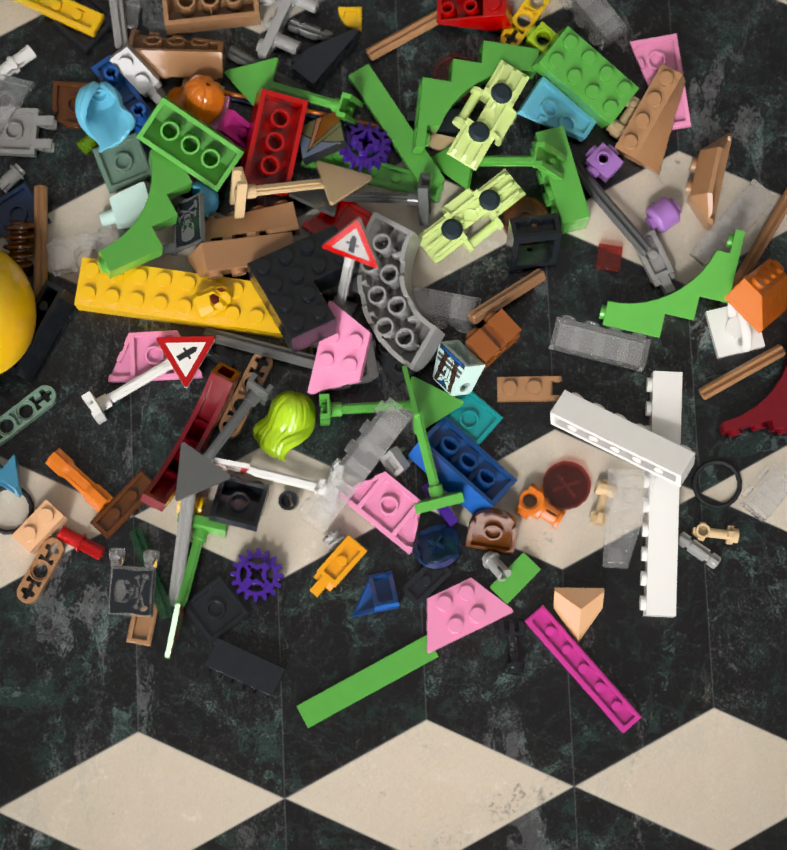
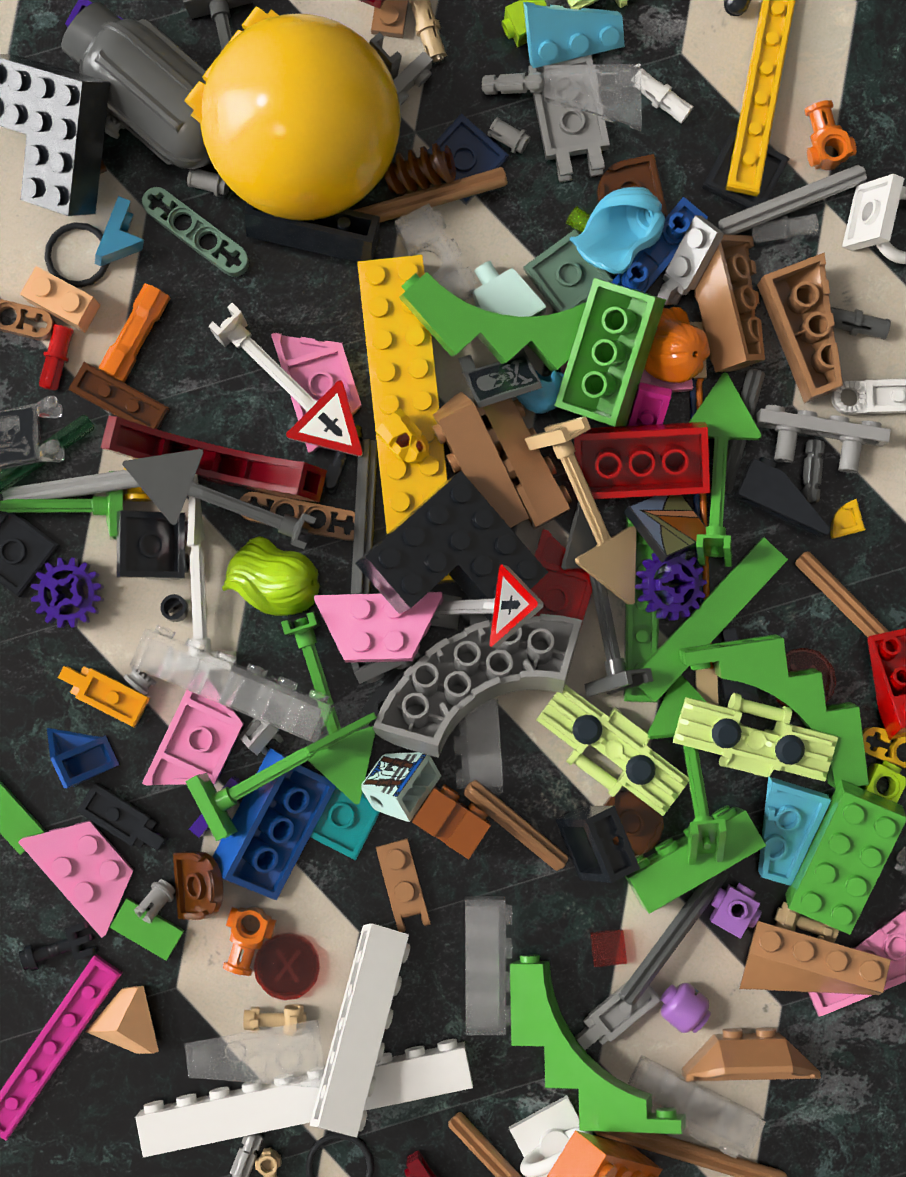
camera: 75 degrees right, 5 degrees up
(437, 546) = (160, 817): dark blue tile -> none

